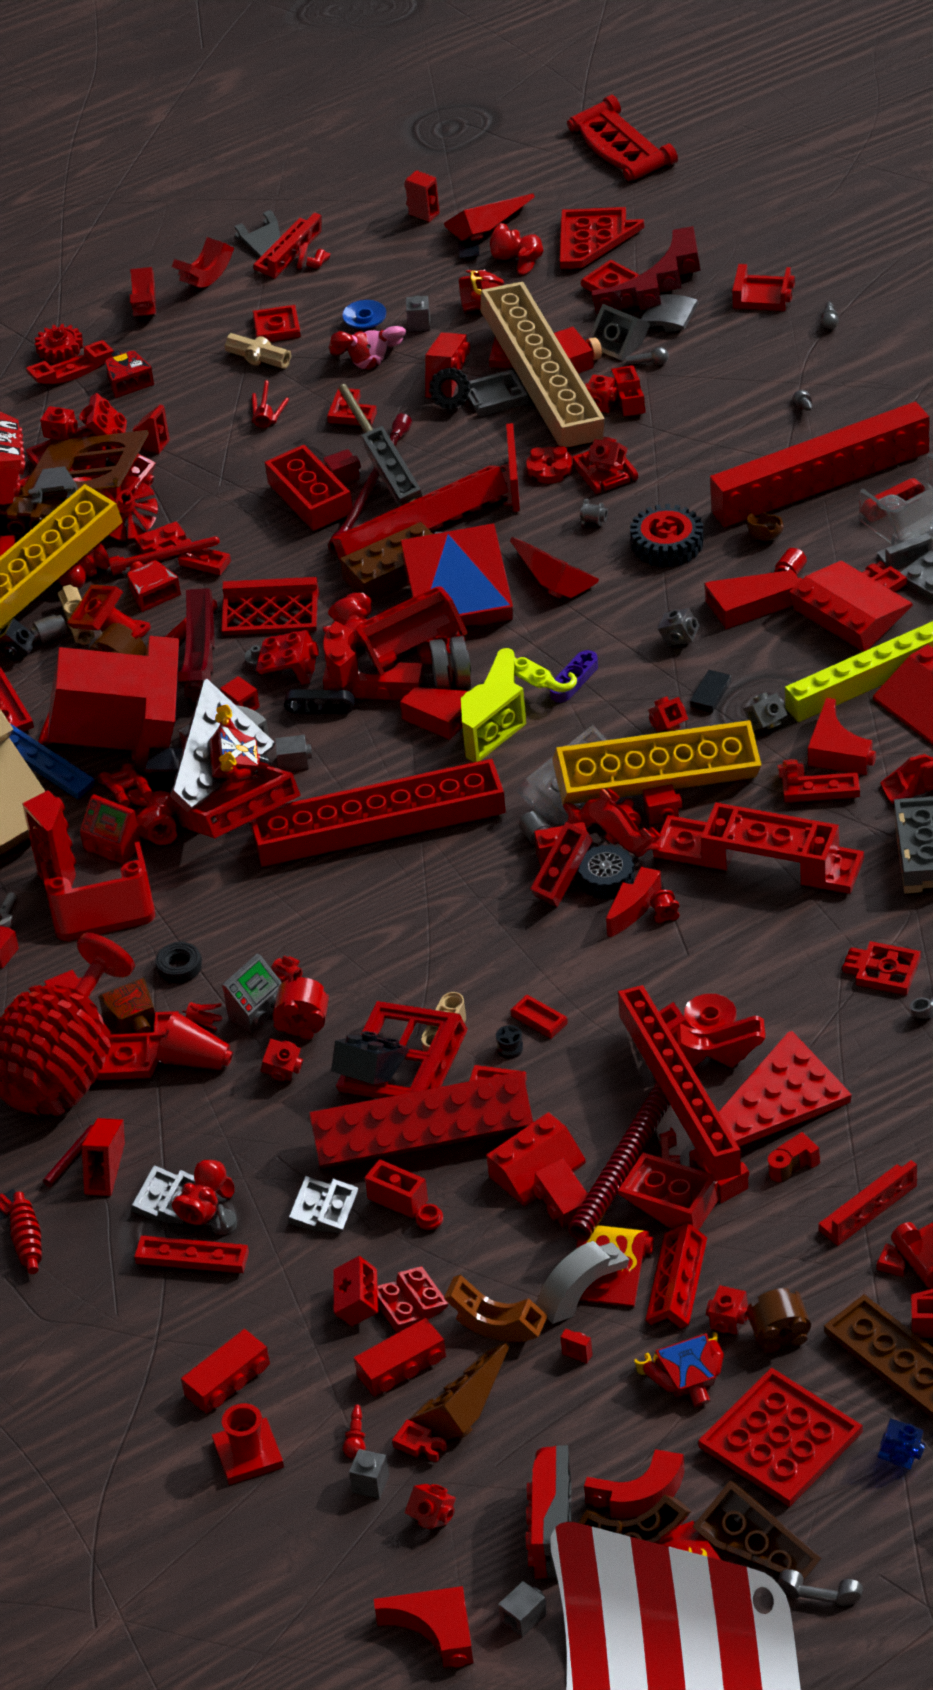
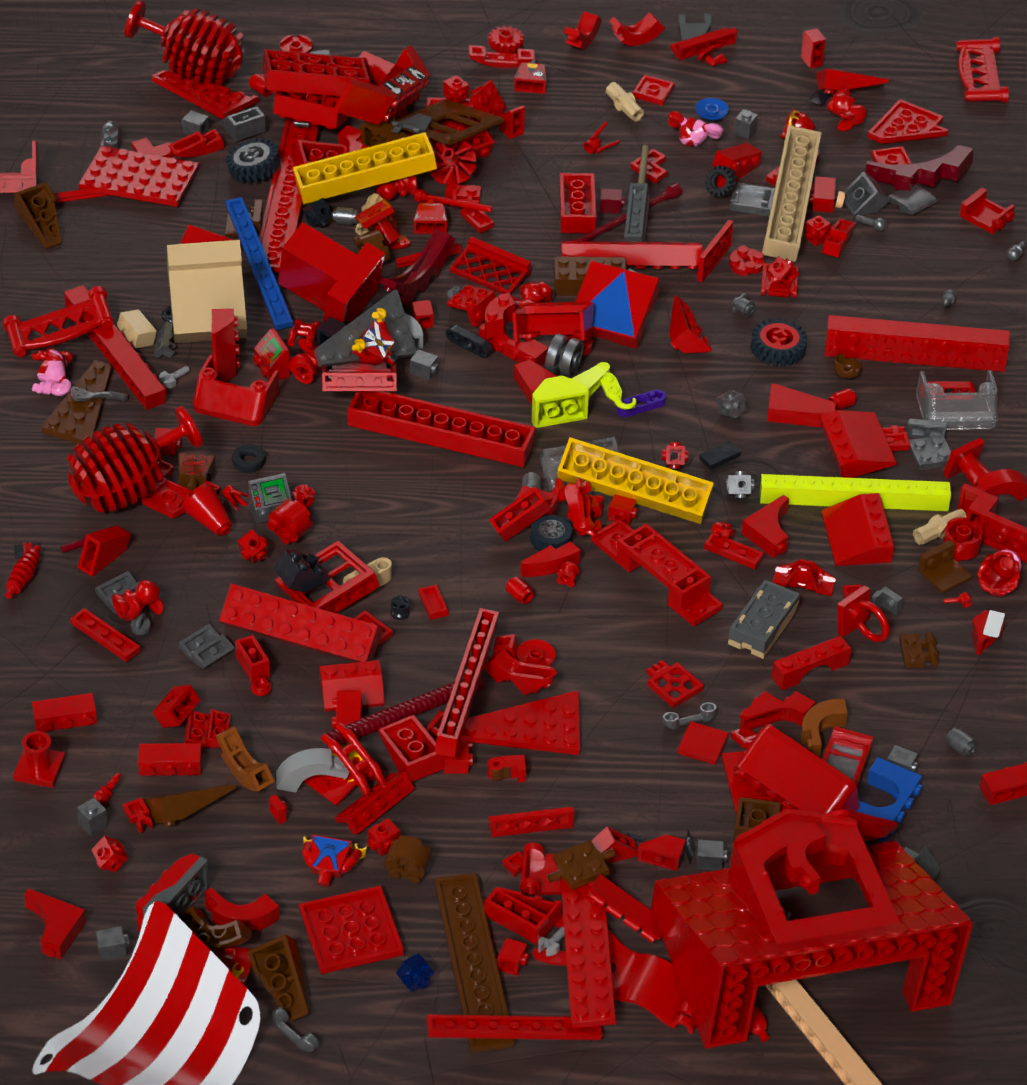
camera: 25 degrees right, 0 degrees up
(610, 1236) = (354, 769): none -> red piece
(627, 952) = (519, 590): none -> red brick

